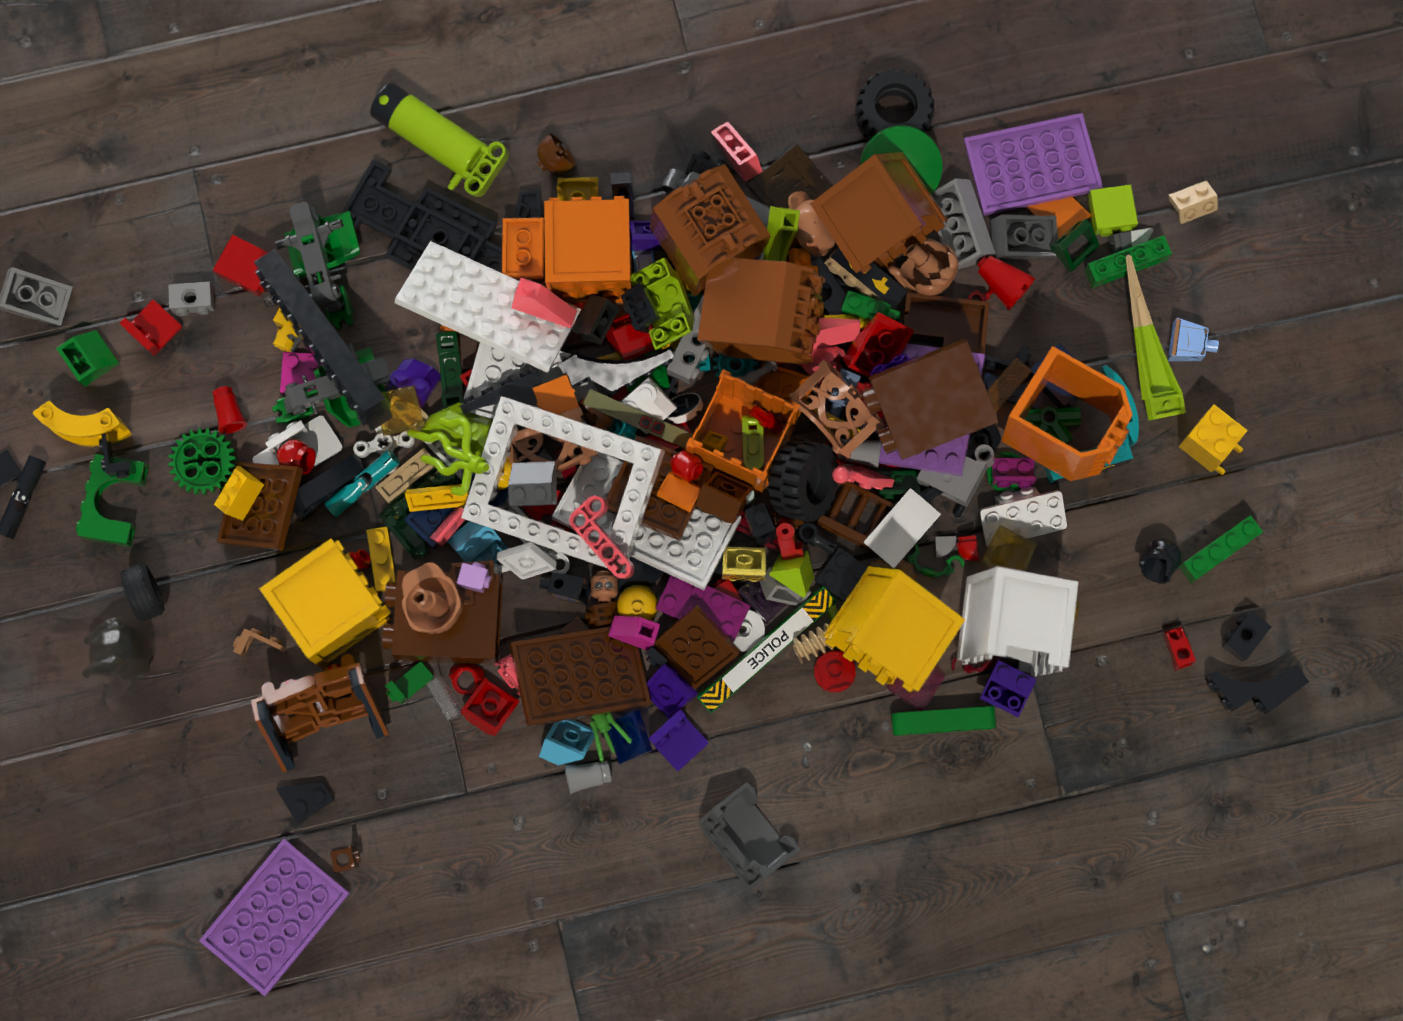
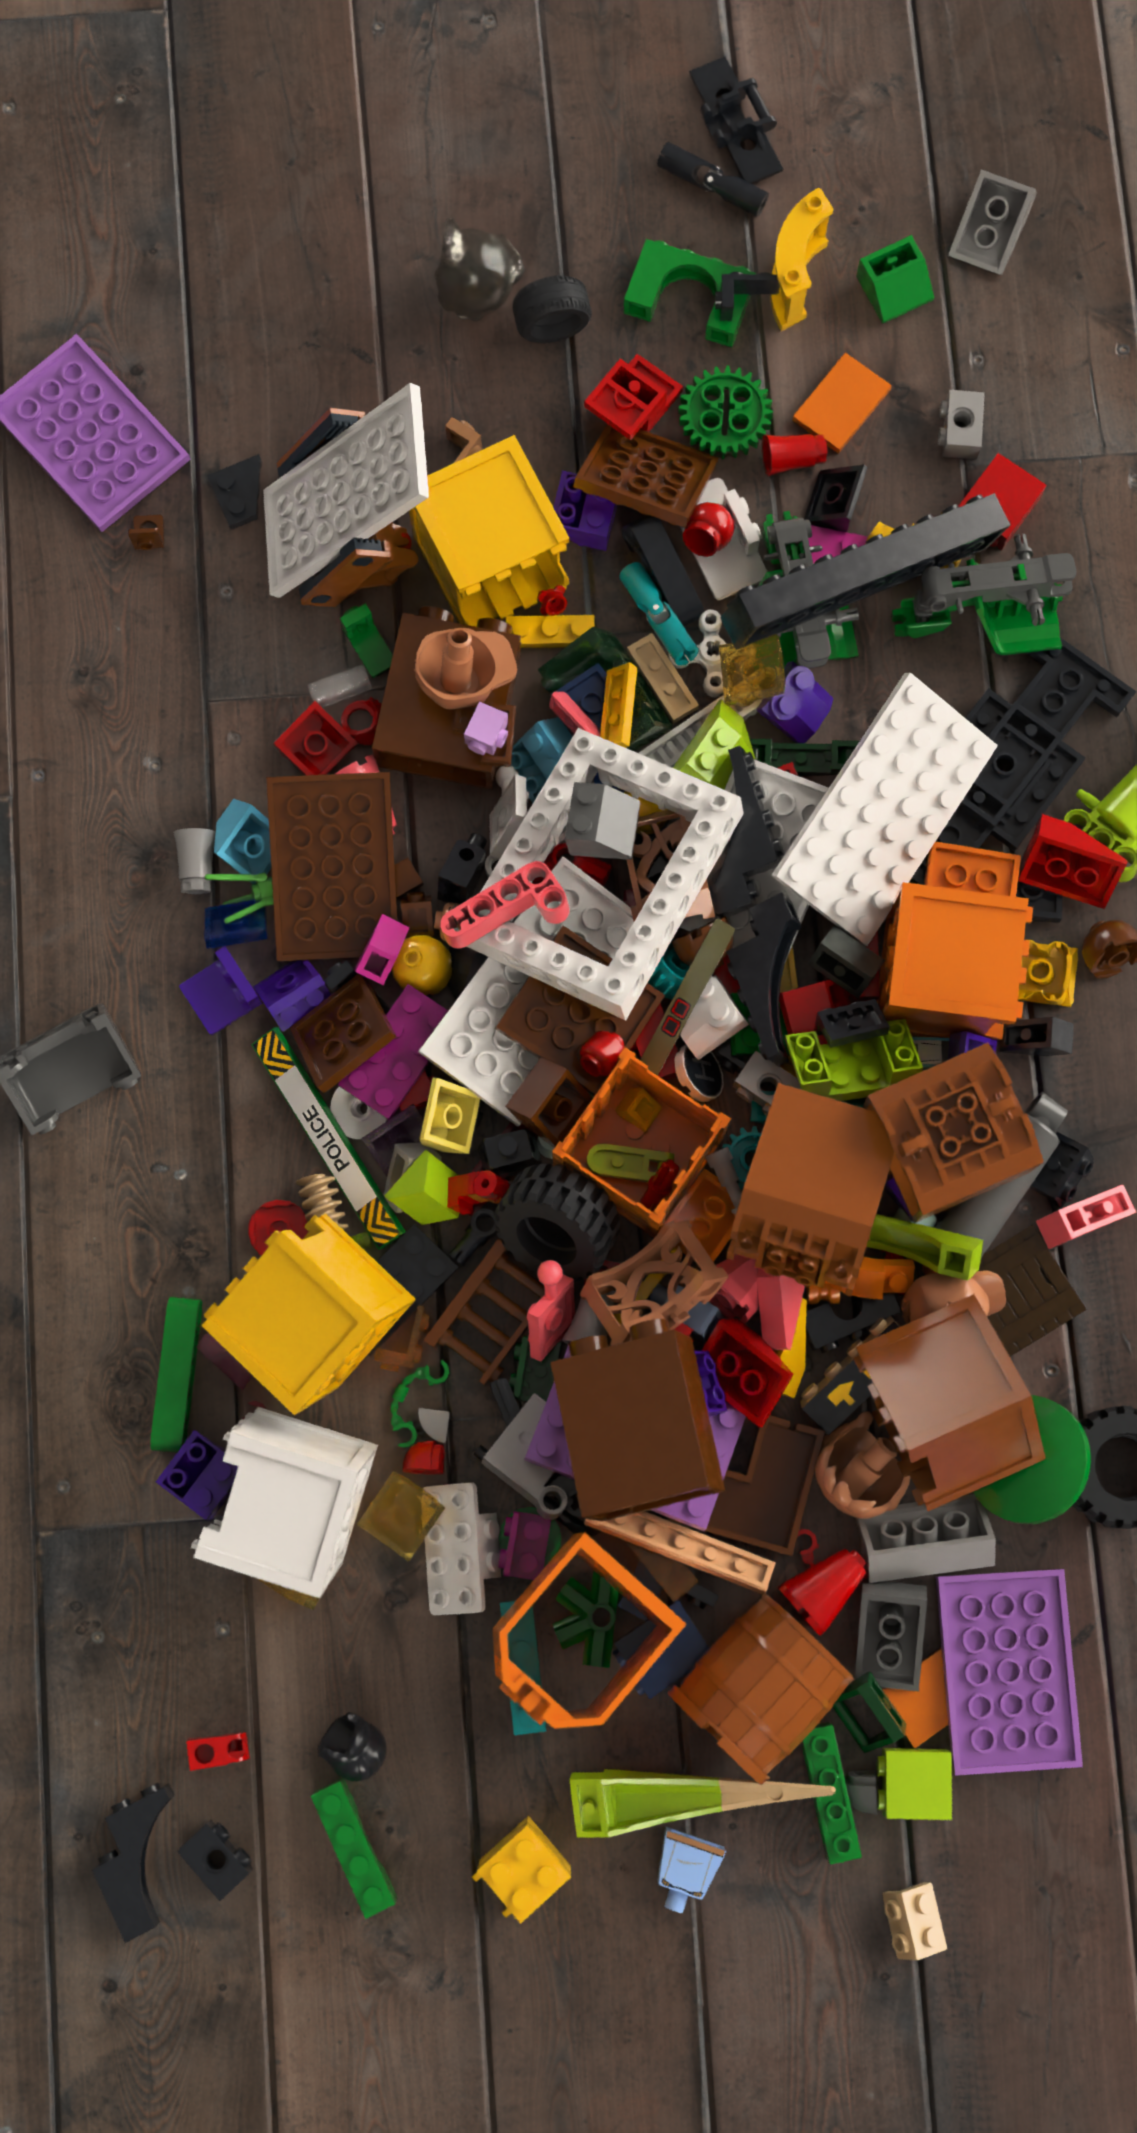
camera: 100 degrees right, 0 degrees up
(152, 327) = (925, 367): red bracket -> none
(183, 383) = (842, 402): none -> orange tile
(201, 525) = (633, 396): none -> red bracket
(239, 494) = (668, 445): yellow slope -> none
(258, 376) = (835, 497): none -> black slope
(297, 545) = (584, 516): none -> dark purple slope
(313, 704) = (346, 490): none -> white plate
(468, 461) = (648, 746): lime plant -> none
(502, 186) = (1070, 863): none -> red slope
(542, 303) = (876, 884): coral slope -> none
(556, 395) = (735, 884): orange piece -> none
(679, 492) = (566, 1037): orange piece -> none
(867, 307) = (808, 1368): green hinge -> none
(902, 528) = (465, 1360): white sticker -> none
(997, 361) = (690, 1548): none -> light nougat tile
(1074, 306) = (762, 1687): none -> dark orange piece
(1133, 424) = (563, 1743): teal slope -> none
(1140, 236) = (867, 1821): white sticker -> none

